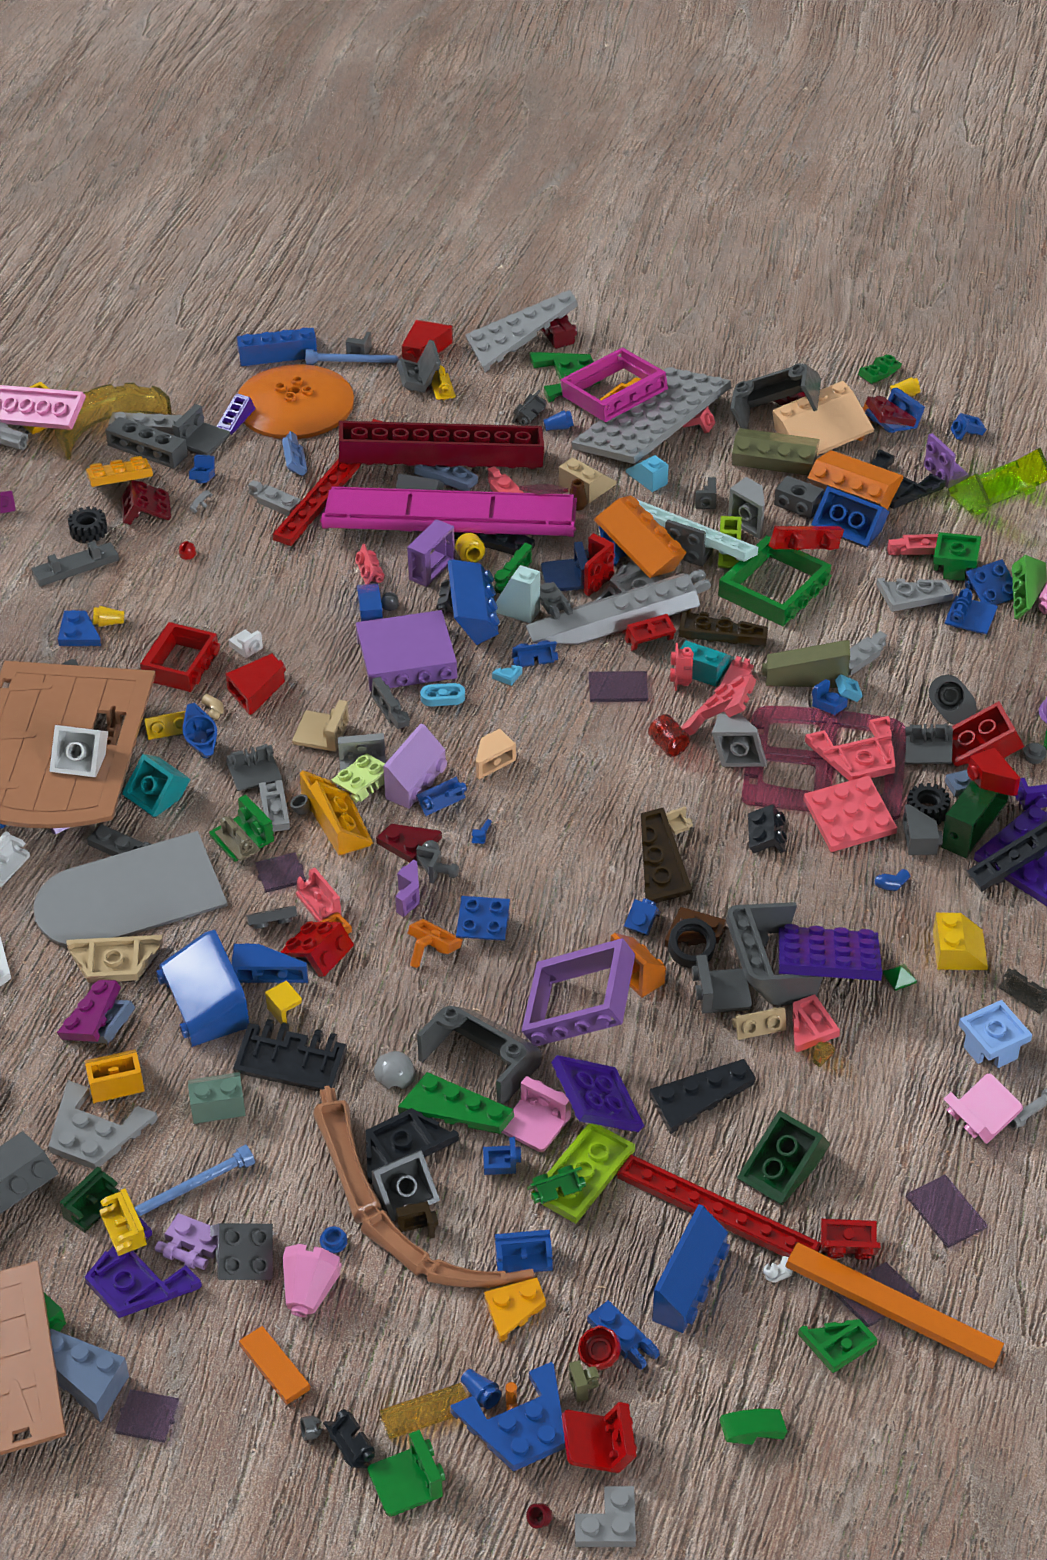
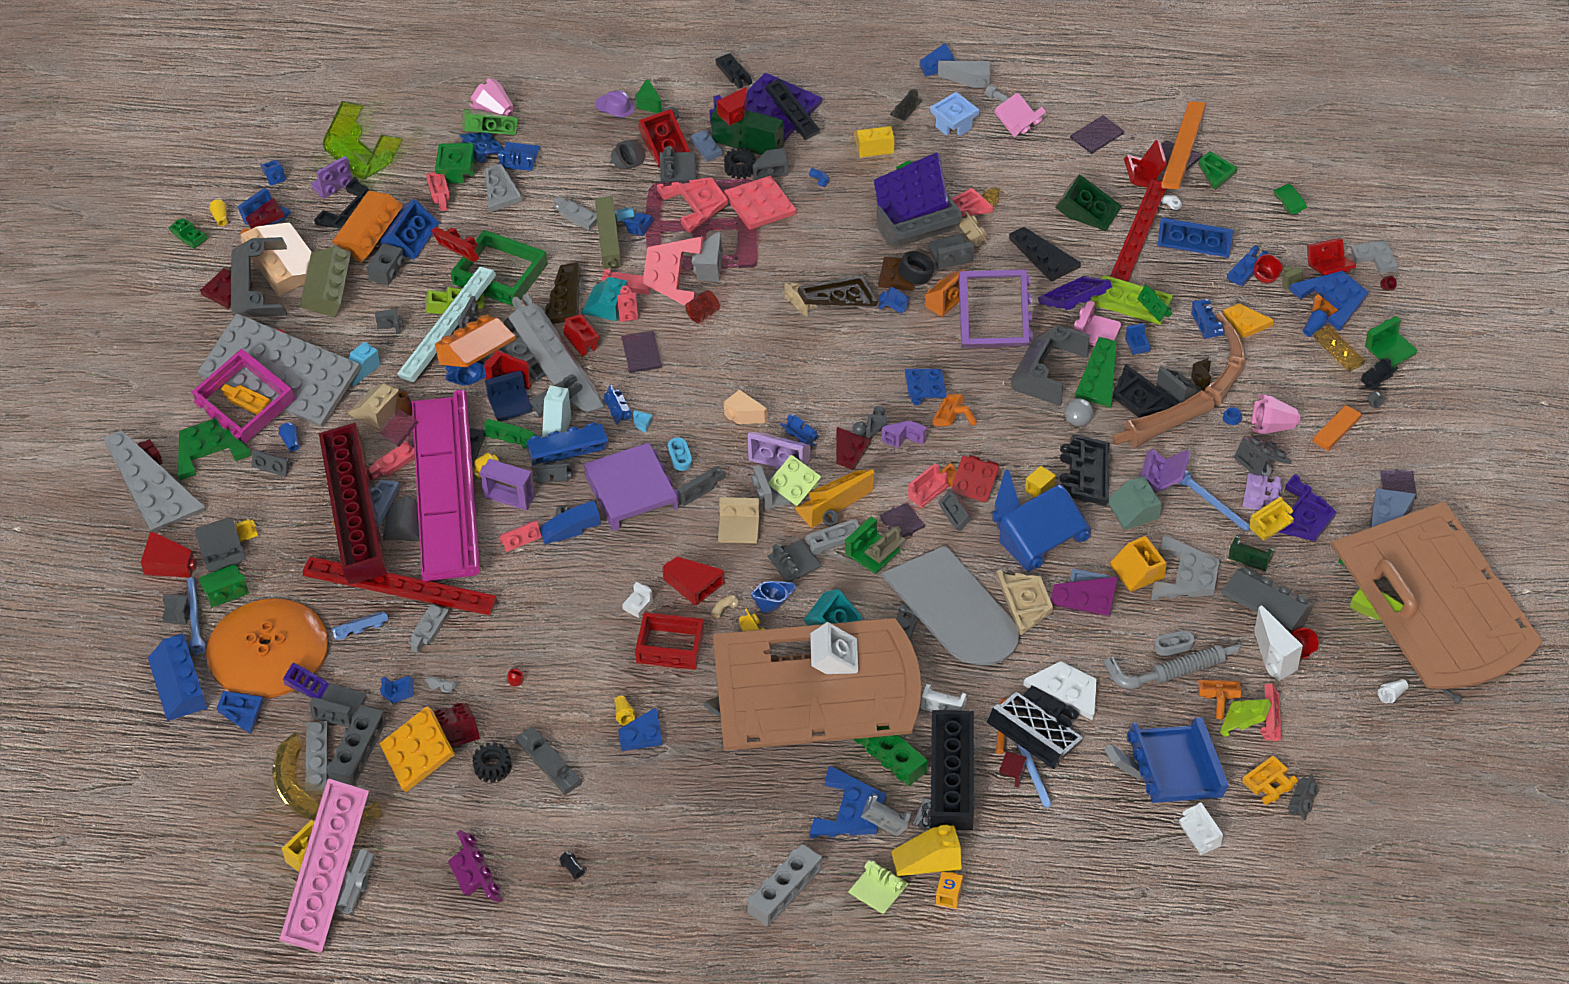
camera: 100 degrees left, 5 degrees up
(224, 380) = (240, 709): none -> blue wing
(258, 1127) = (1164, 472): none -> medium lavender bracket
(376, 375) = (224, 585): none -> green bracket
(479, 836) = (833, 405): blue hand -> none
(748, 502) = (413, 284): light grey slope -> none
(766, 829) = (788, 245): black bracket -> none

